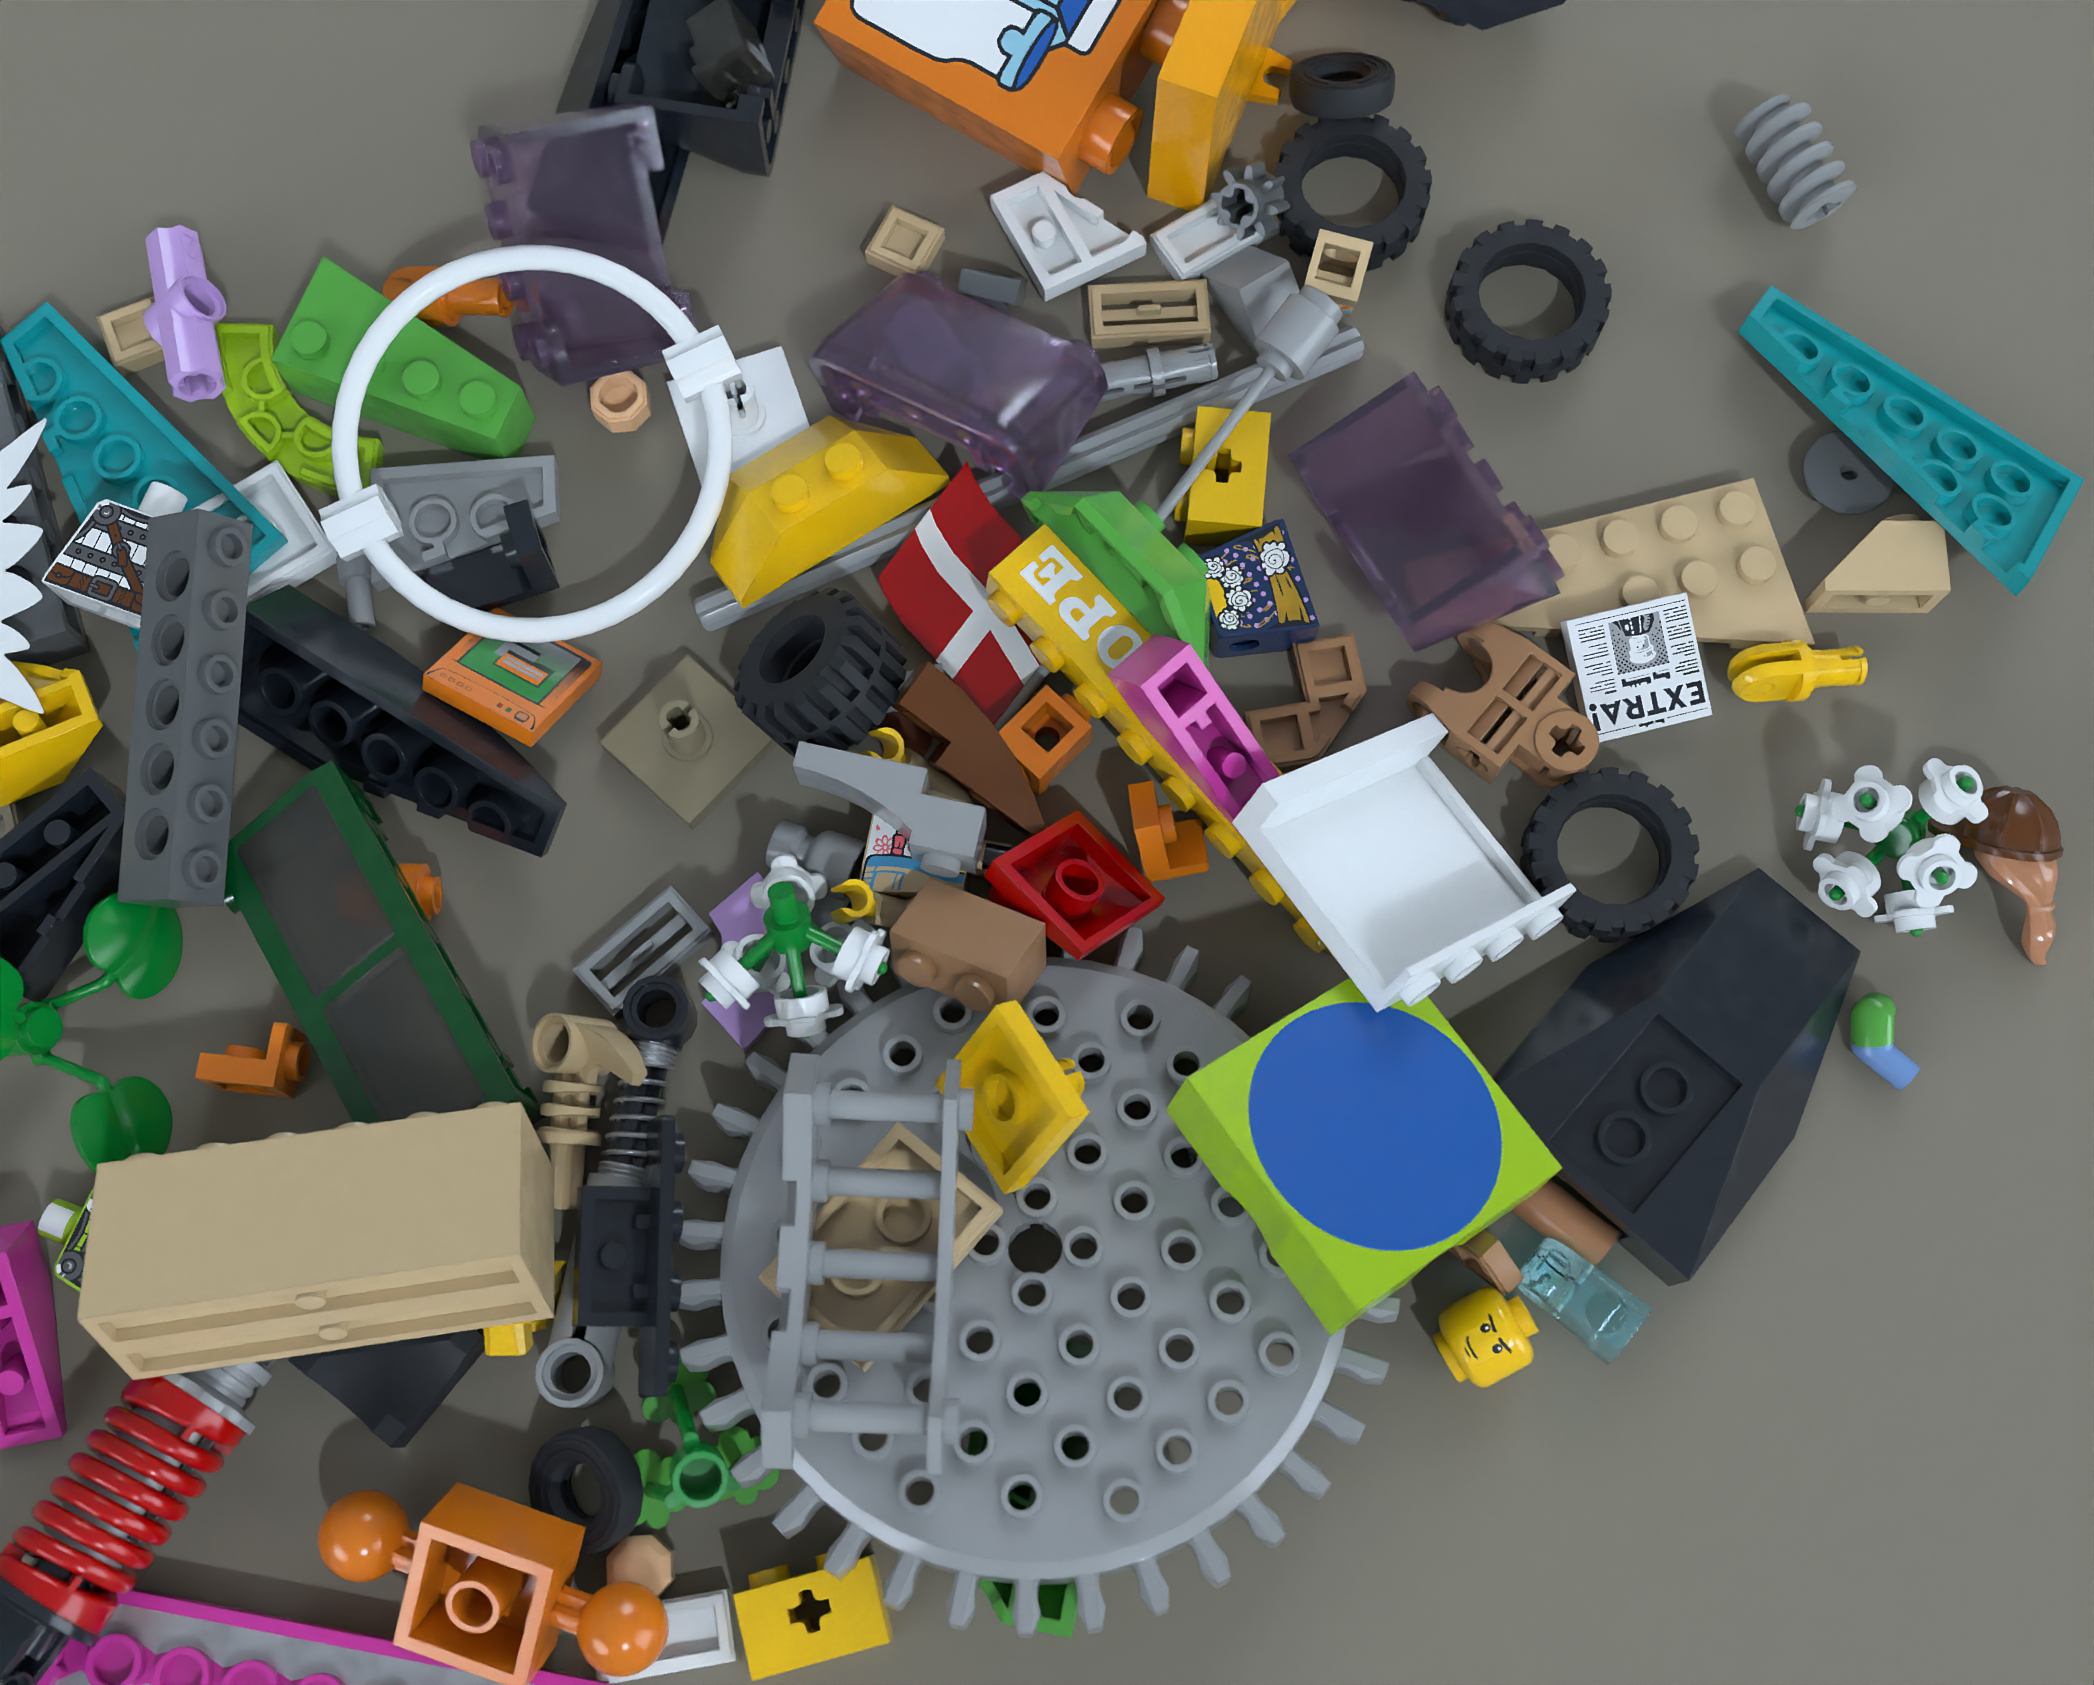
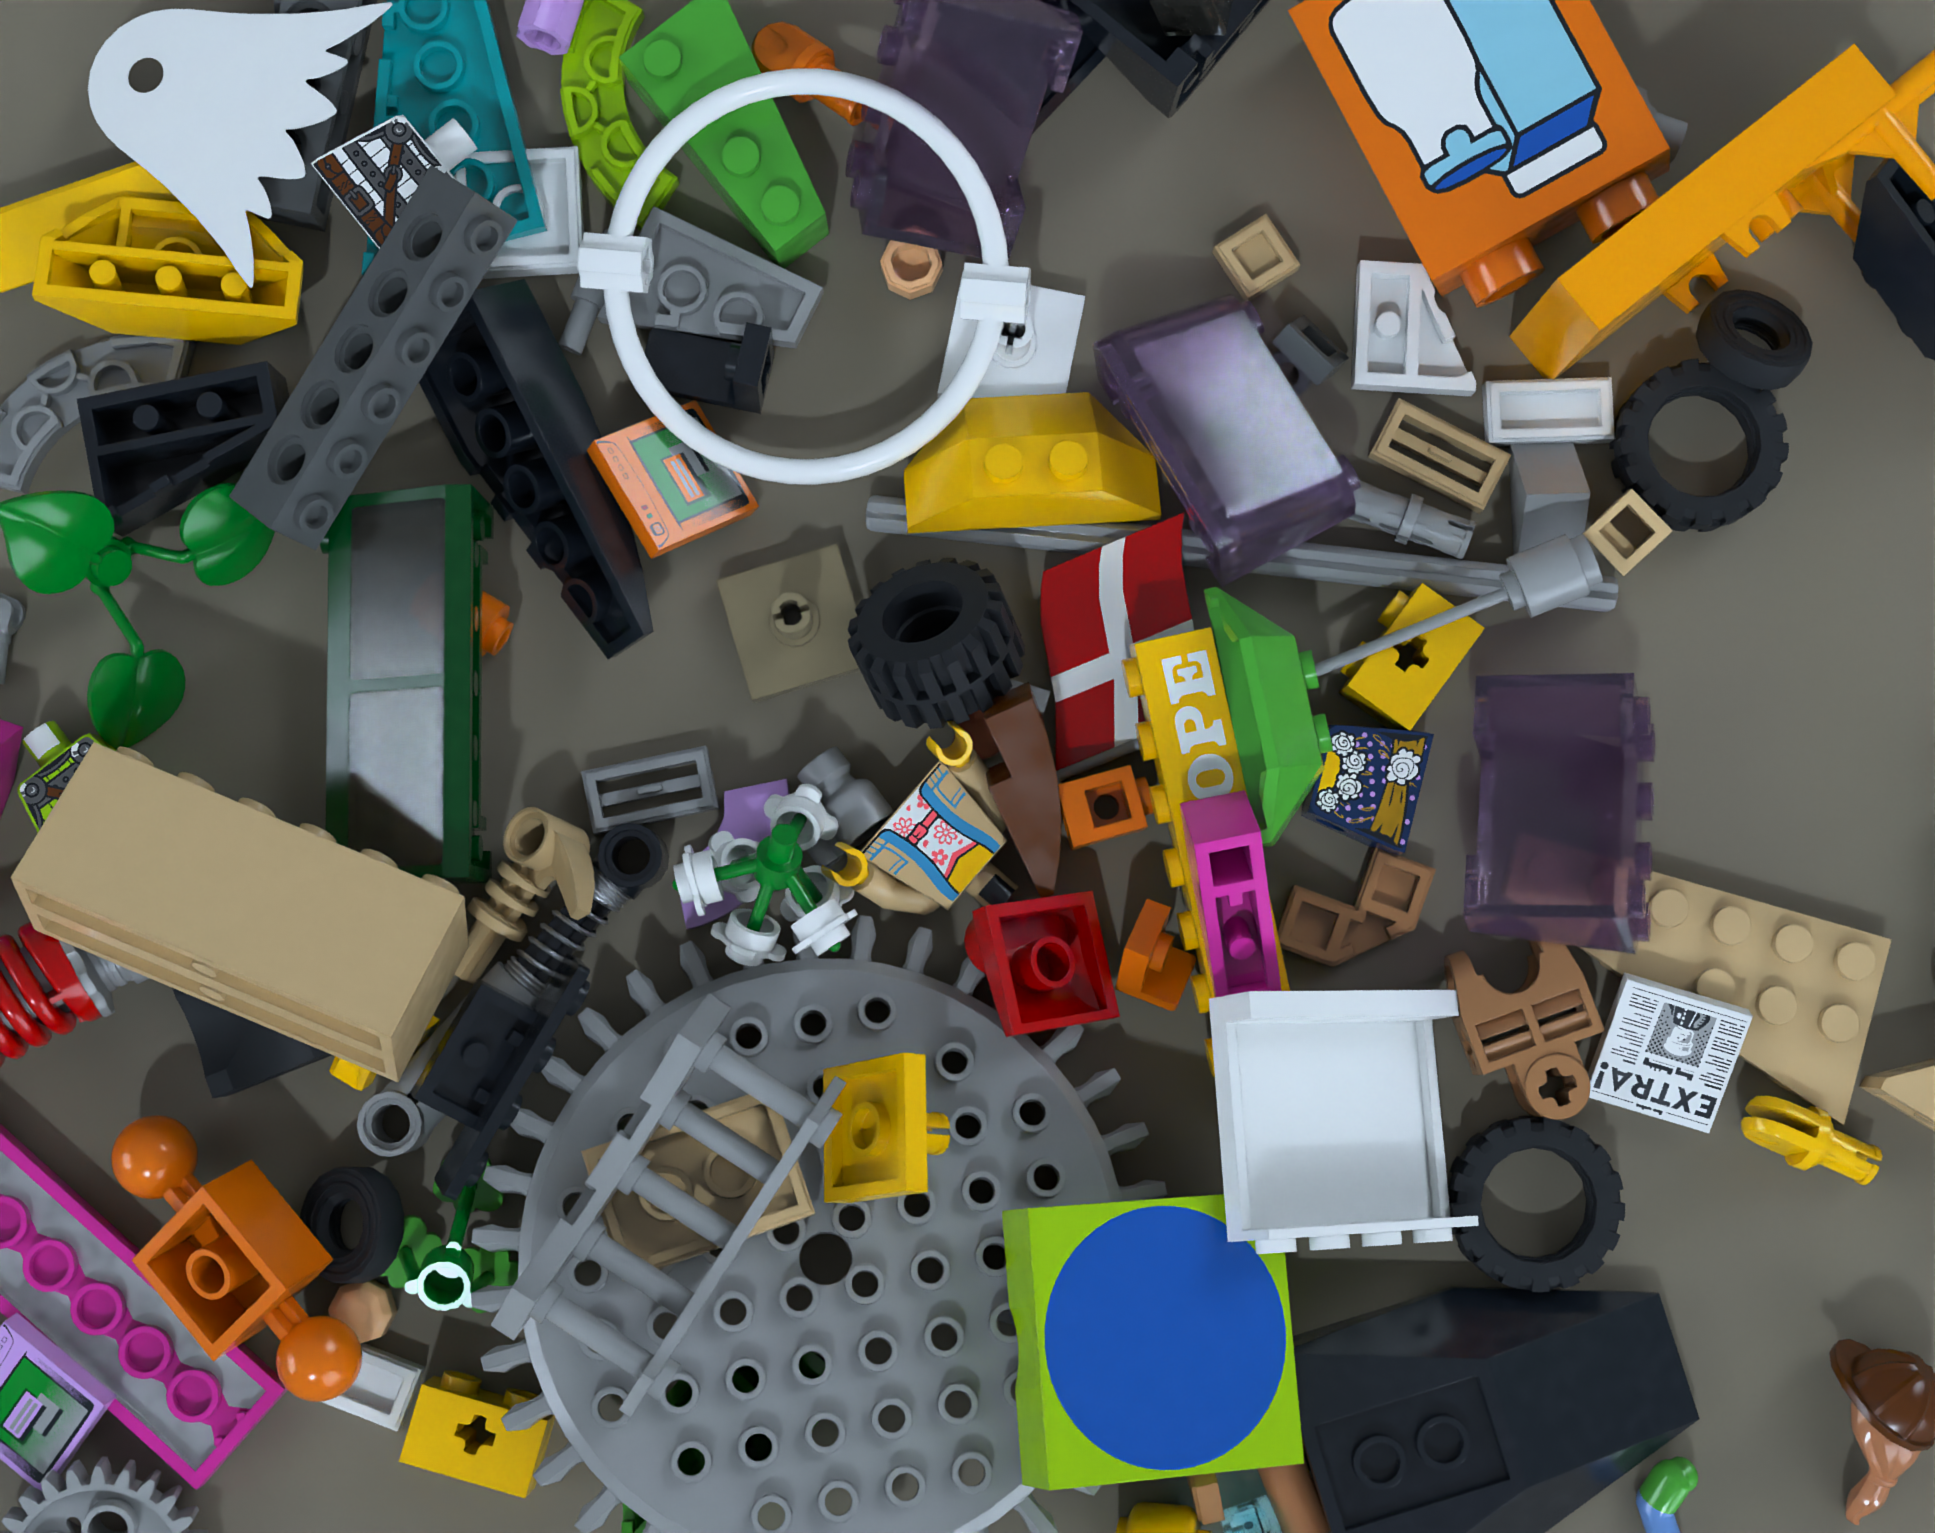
camera: 30 degrees right, 10 degrees up
(247, 1071) = (263, 699): orange bracket -> none
(939, 830) = (955, 850): light grey slope -> none
(967, 947) = (920, 967): medium nougat brick -> none
(1250, 200) = (1594, 410): dark grey gear -> none
(1542, 249) = (1852, 621): black tyre -> none
(1882, 815) = (1790, 1327): white plant -> none

